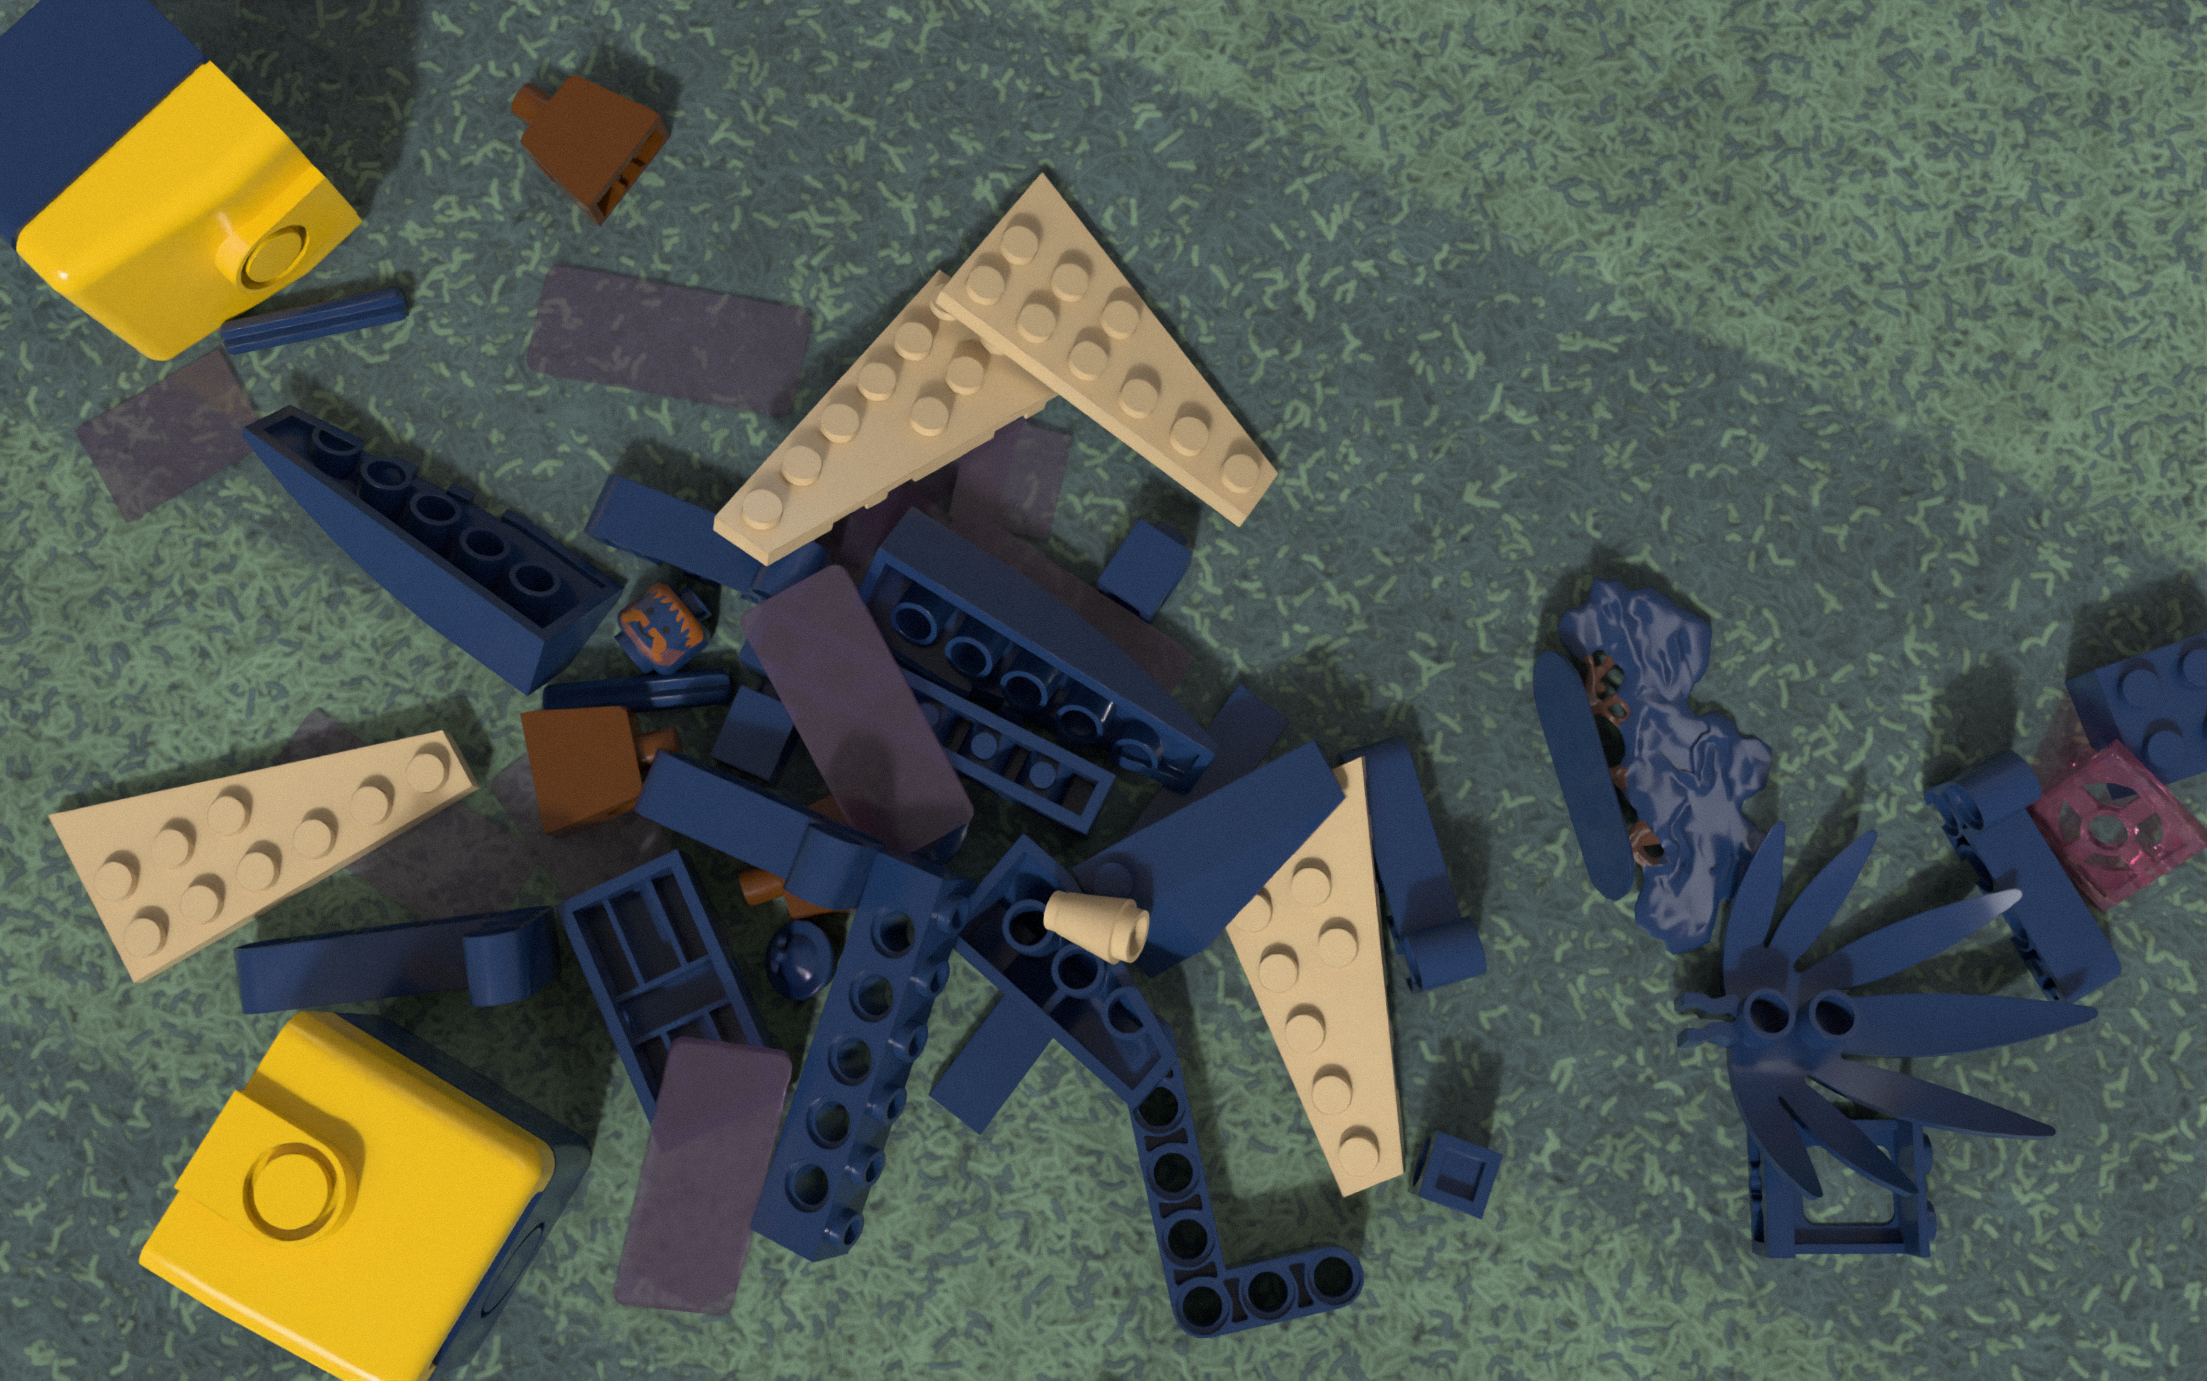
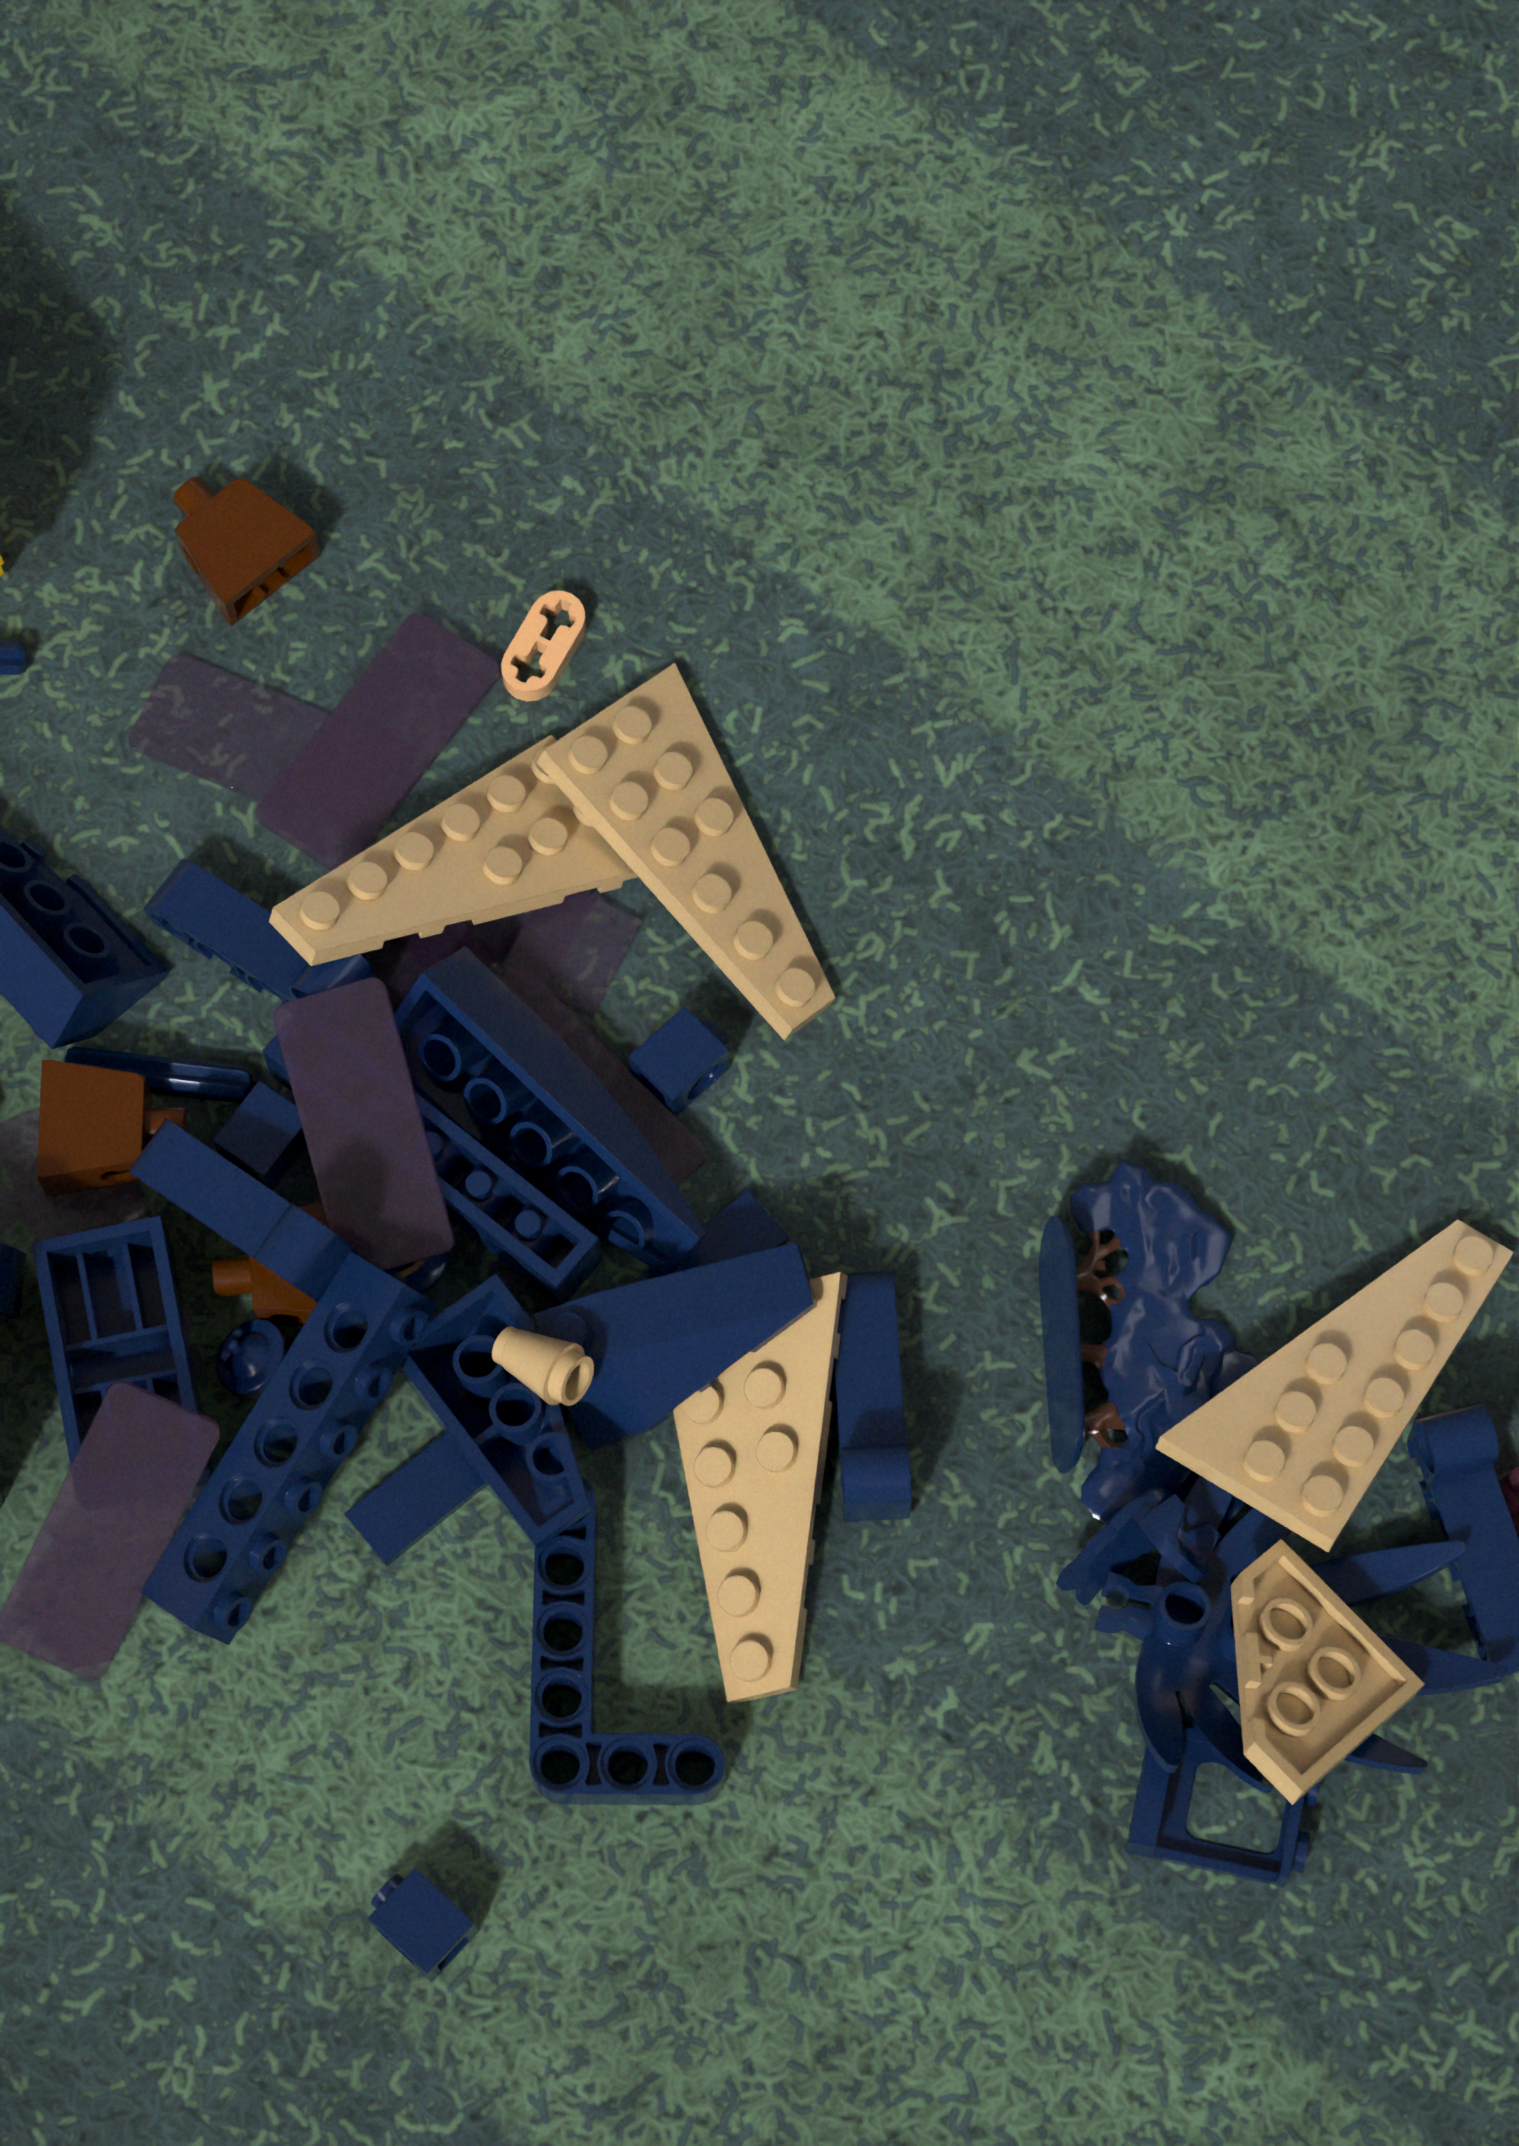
camera: 15 degrees right, 10 degrees down
(663, 628) = (198, 1016): dark blue head -> none
(772, 314) = (378, 742): none -> clear purple piece
(897, 178) = (555, 652): none -> light nougat beam
(1454, 1173) = (839, 1695): dark blue brick -> none
(1719, 929) = (1141, 1525): none -> dark blue hair
(1862, 780) = (1331, 1404): none -> tan wing
(1914, 1062) = (1307, 1673): none -> tan plate

